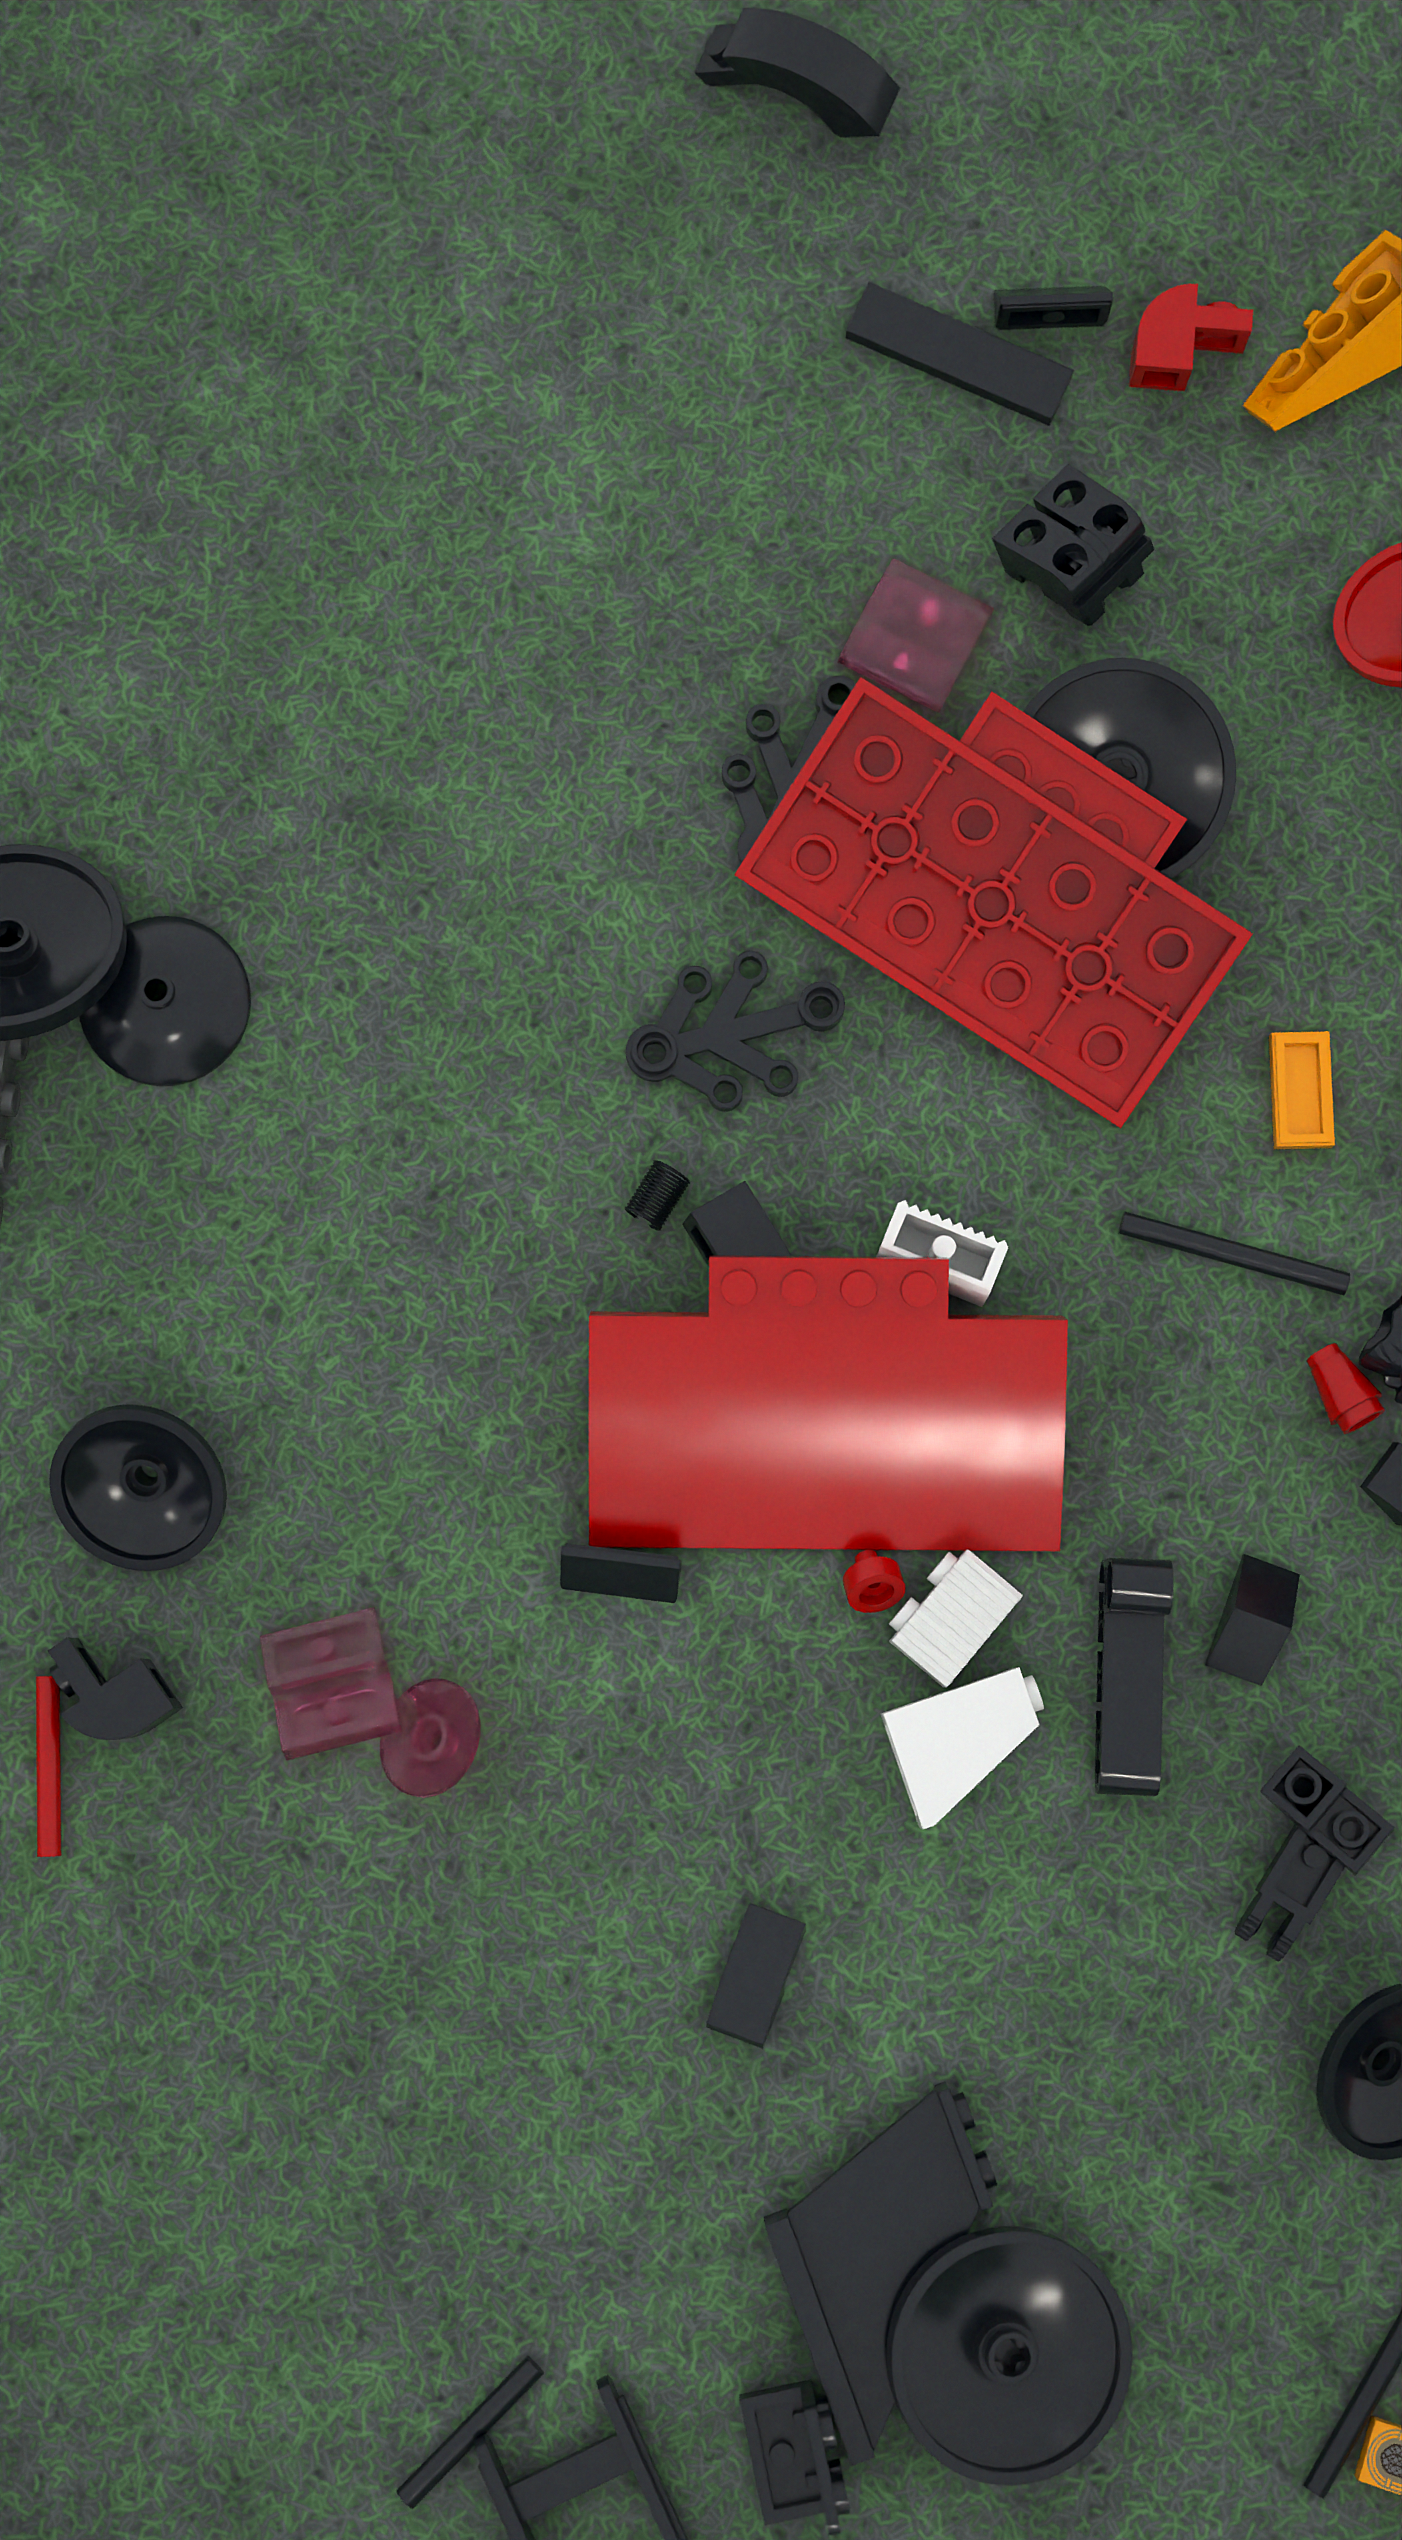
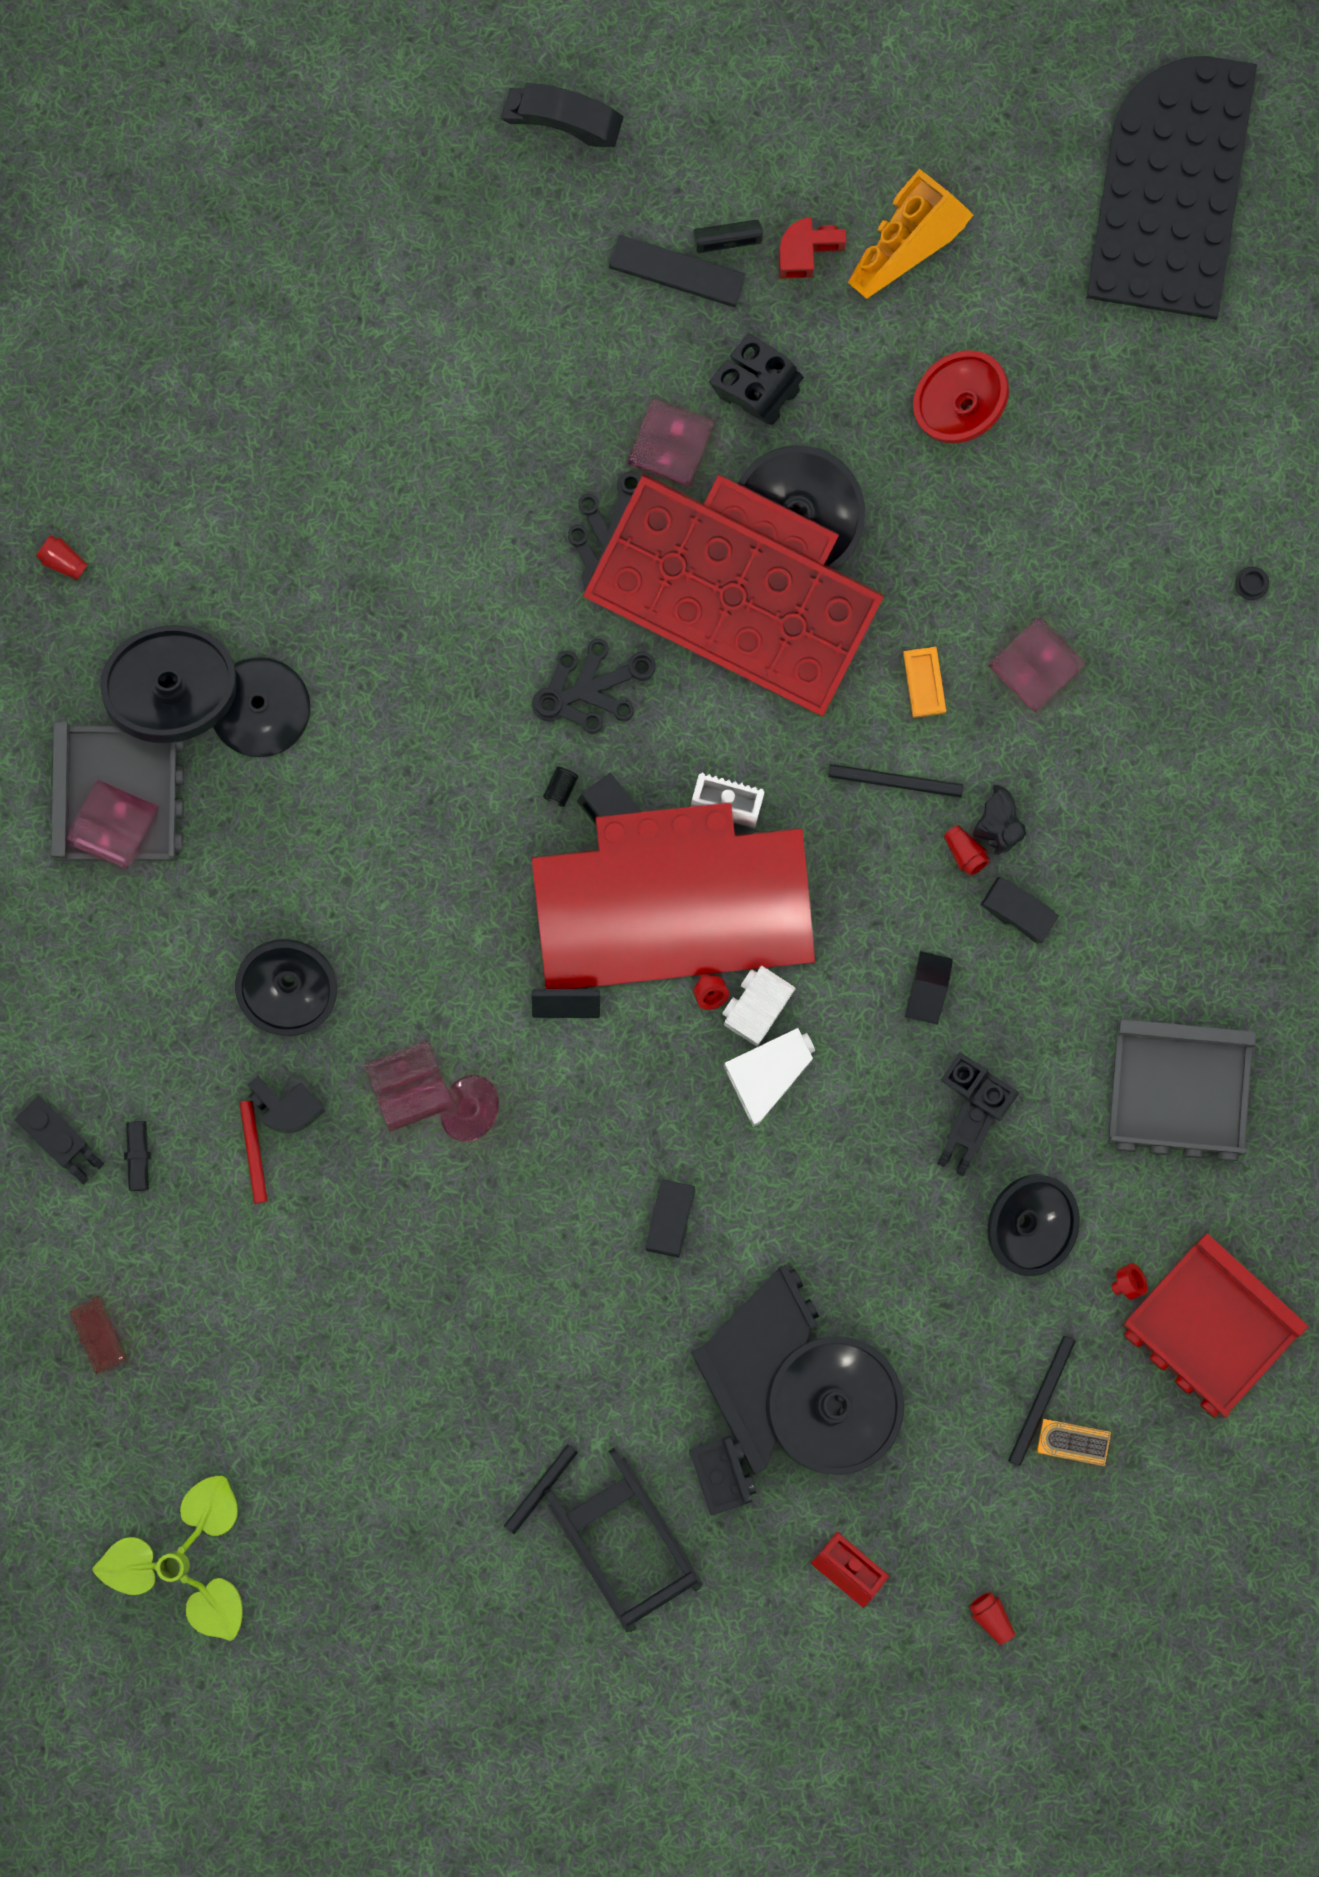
camera: 15 degrees left, 0 degrees up
(1131, 1674) = (862, 1025): black beam -> none

